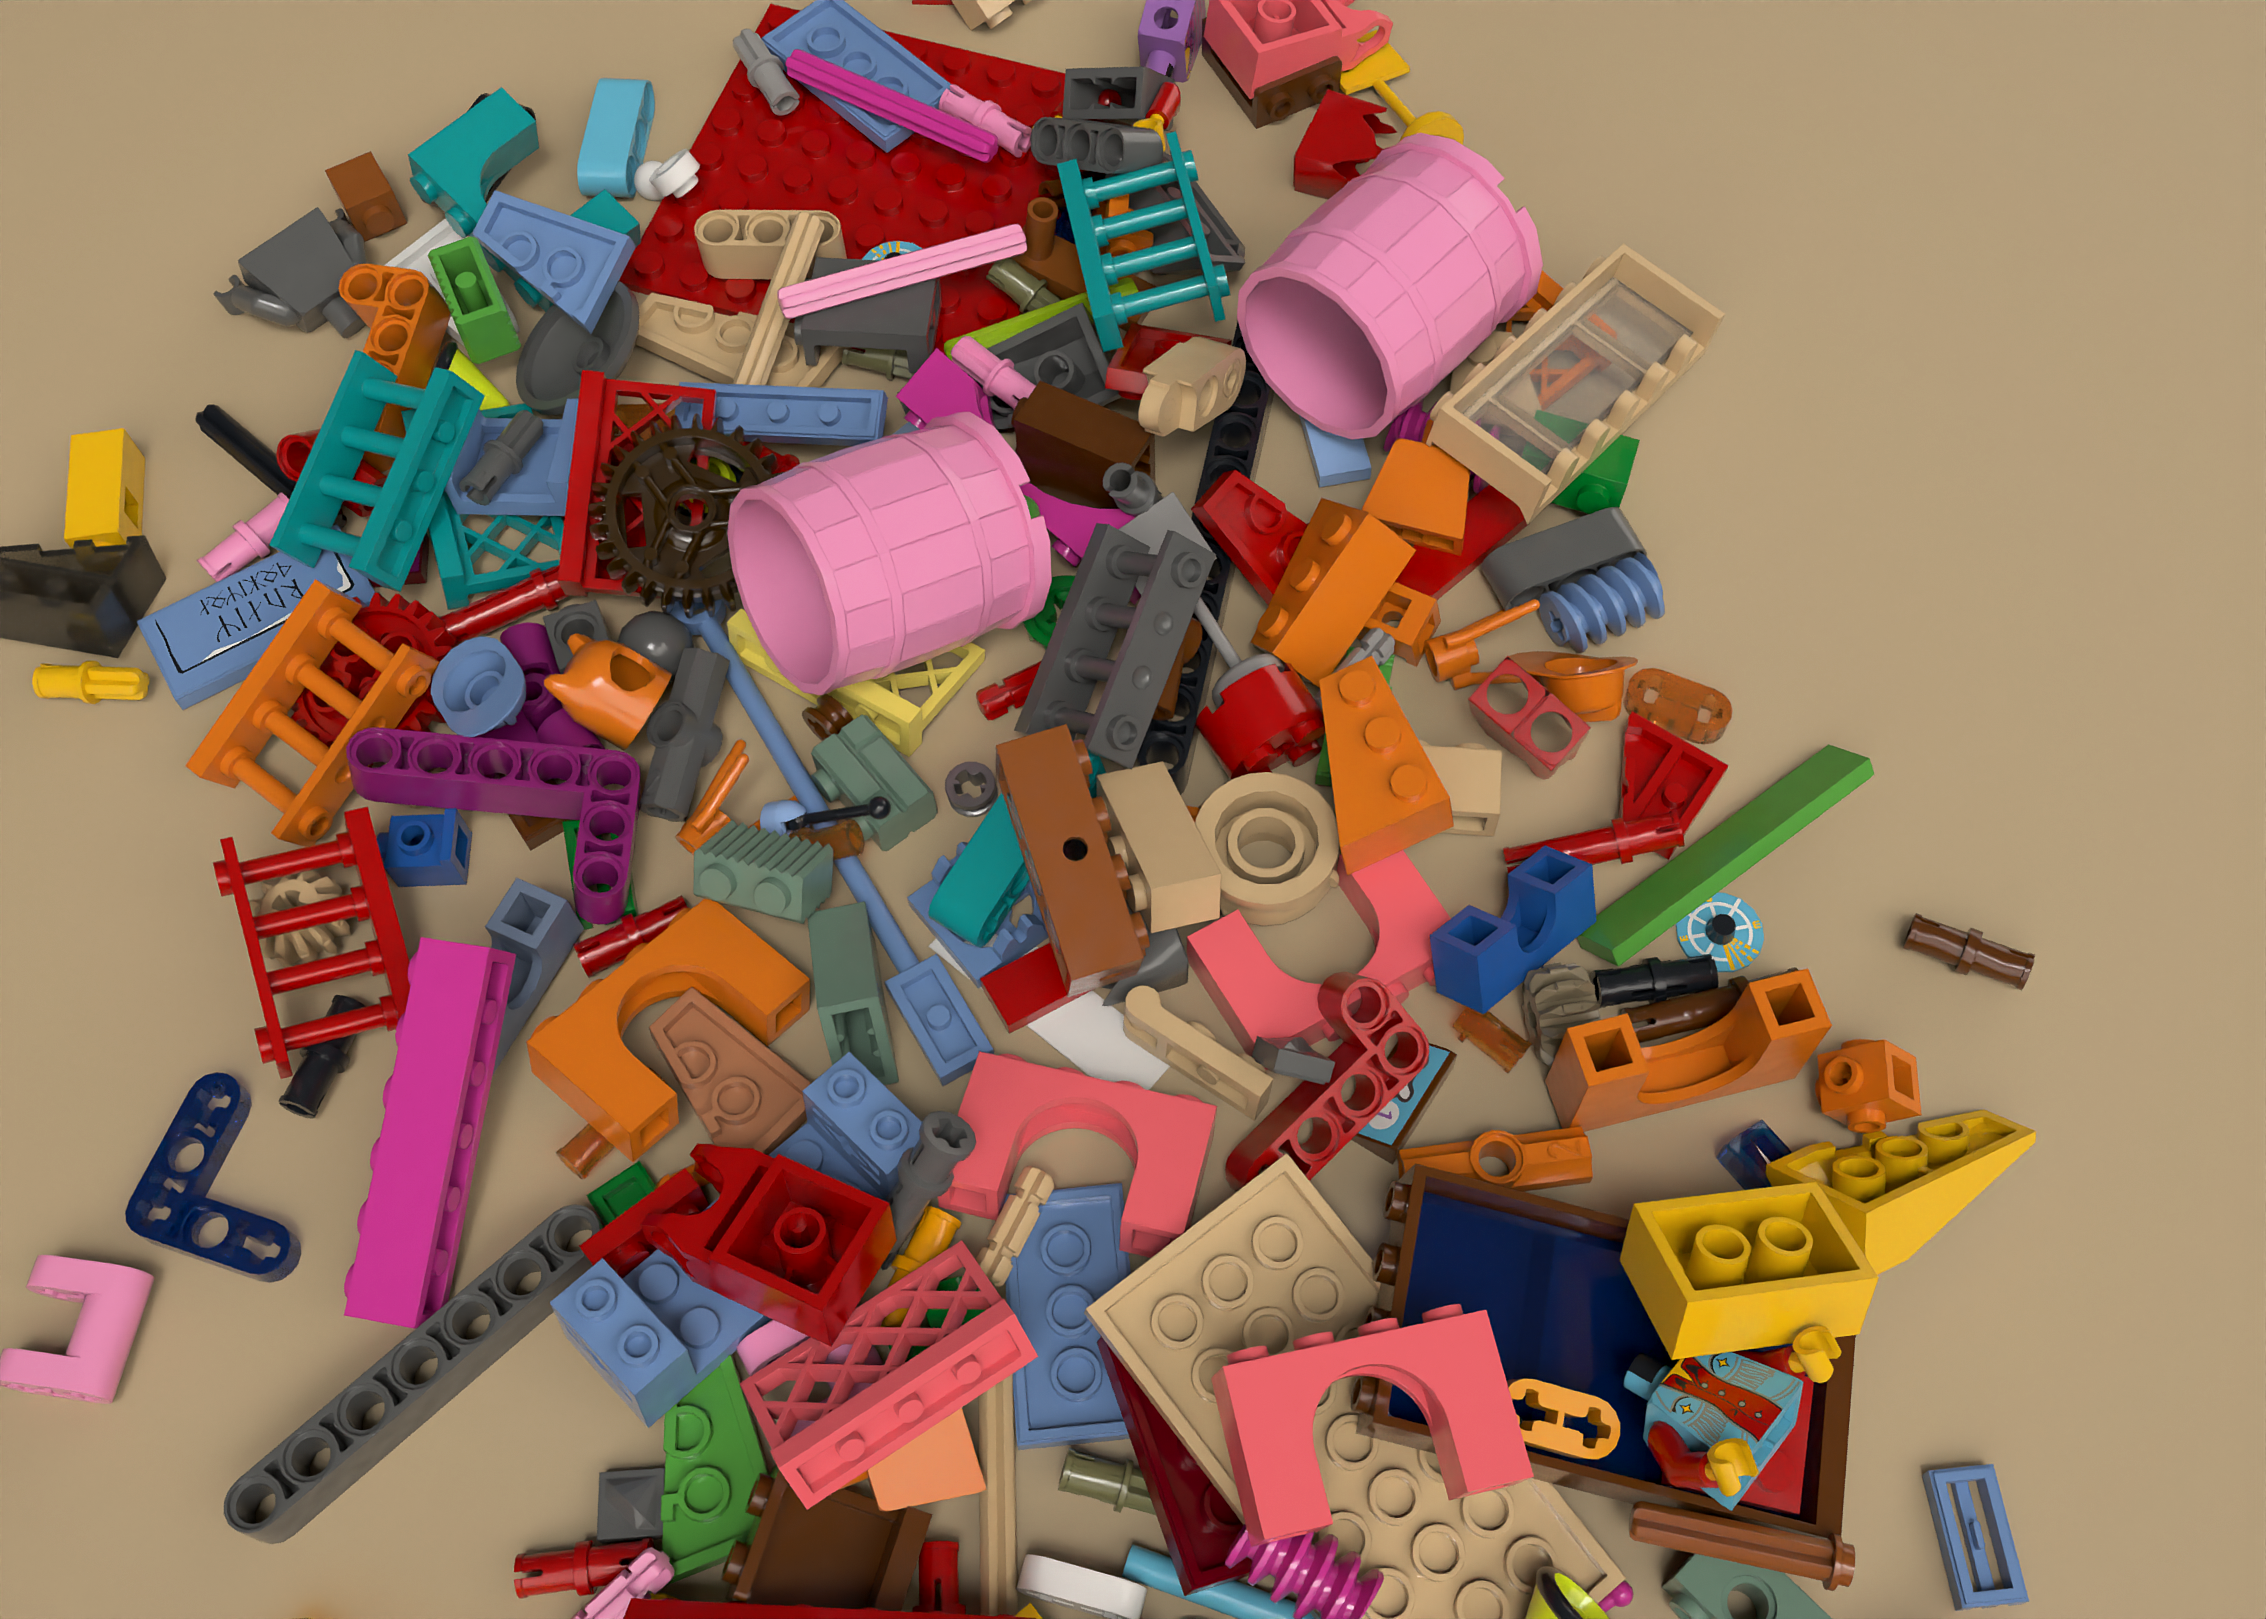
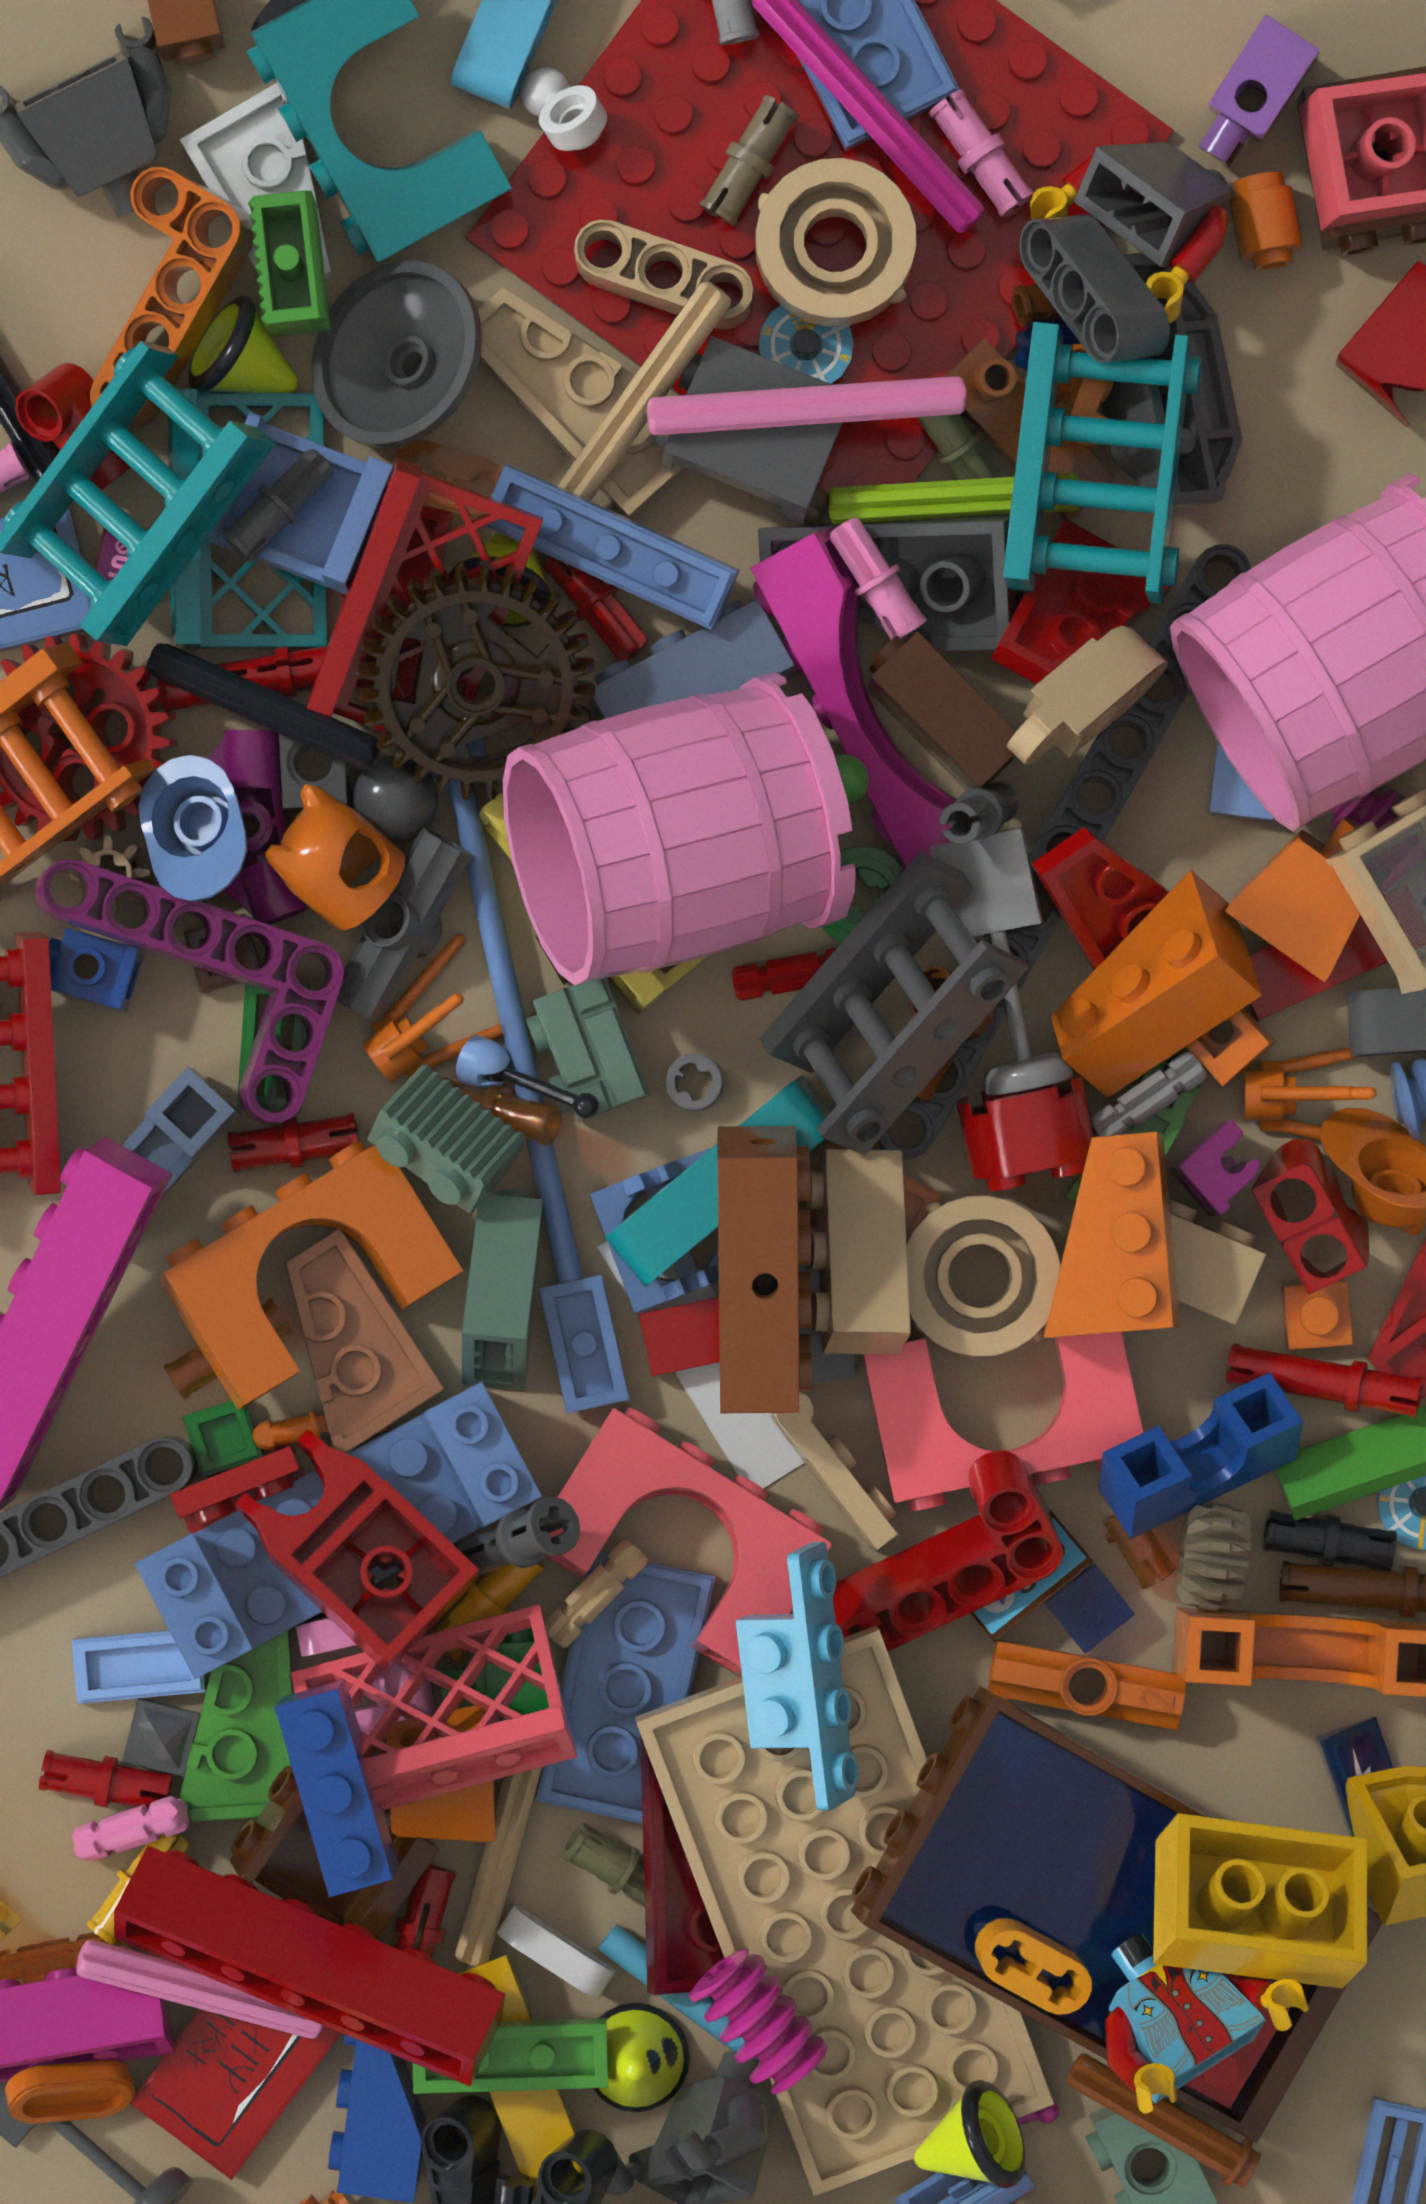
camera: 15 degrees right, 25 degrees up
(525, 598) = (262, 706): none -> black axle
(556, 254) = (404, 241): medium blue wing -> none
(589, 1443) = (131, 1667): none -> light blue tile
(802, 1452) = (334, 1788): none -> blue arch
(815, 164) = (749, 160): none -> dark tan pin
(888, 159) = (835, 190): none -> tan piece
(1208, 110) = (1265, 220): none -> orange brick
(1223, 1213) = (796, 1677): none -> medium azure bracket
(1293, 1058) = (922, 1527): dark grey tile -> none
(1431, 701) = (1206, 1174): none -> magenta hinge
(1442, 1364) = (777, 1888): coral arch -> none
(1469, 1101) = (1089, 1608): none -> clear blue plate
(1562, 808) = (1316, 1318): none -> orange plate

